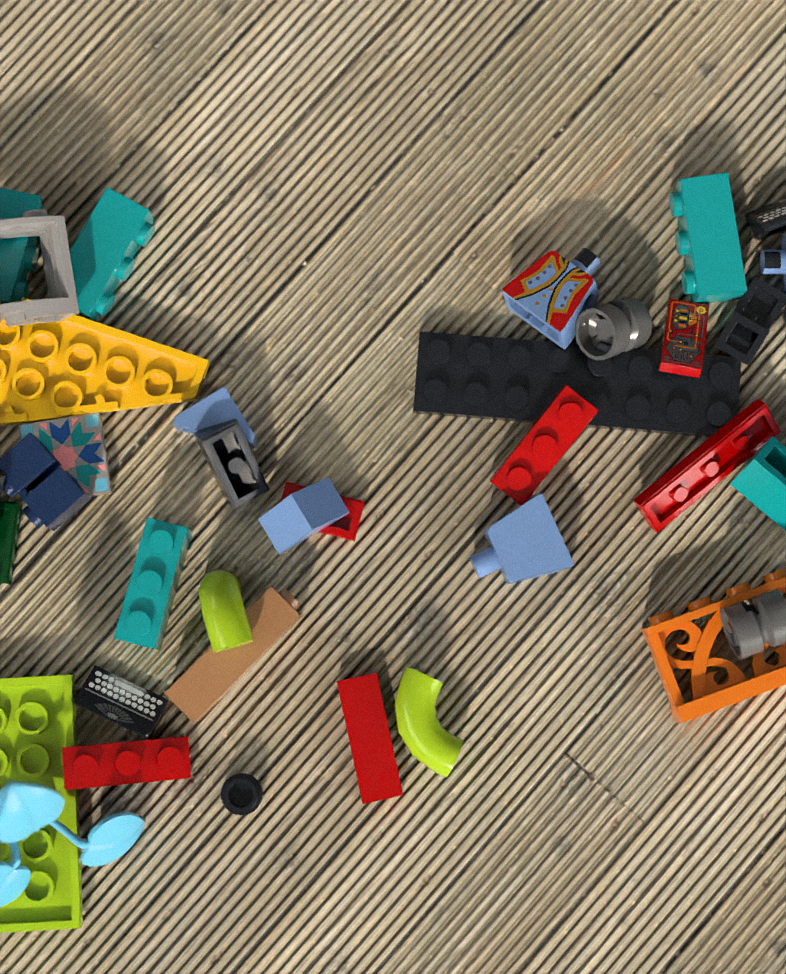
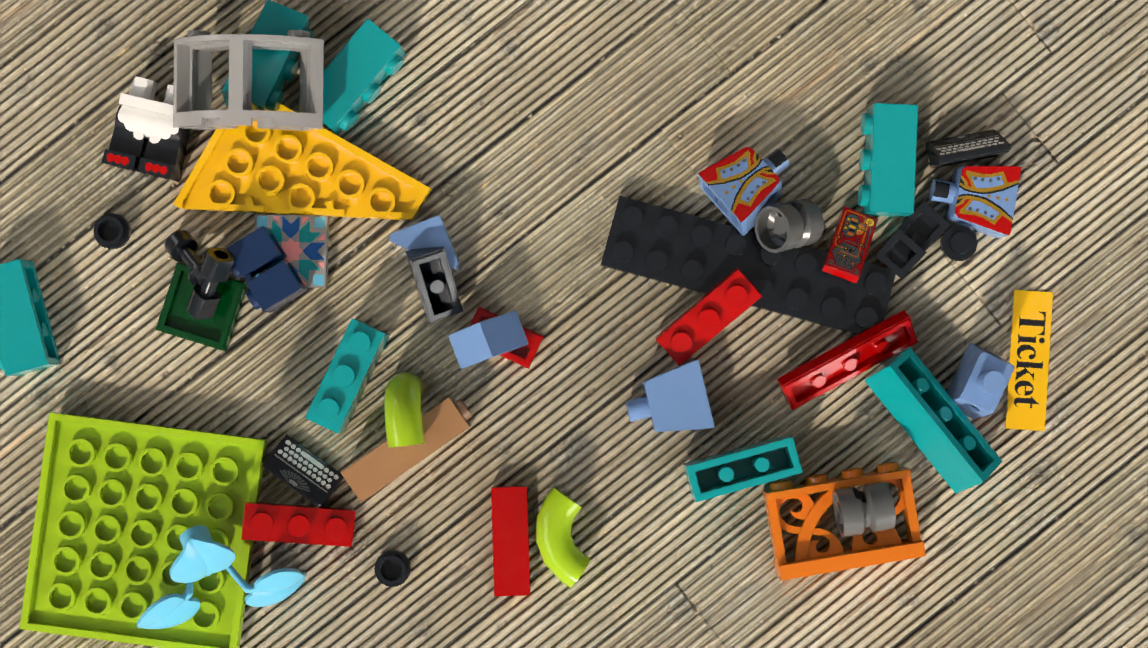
camera: 15 degrees right, 5 degrees up
(614, 605) = (742, 468): none -> teal brick

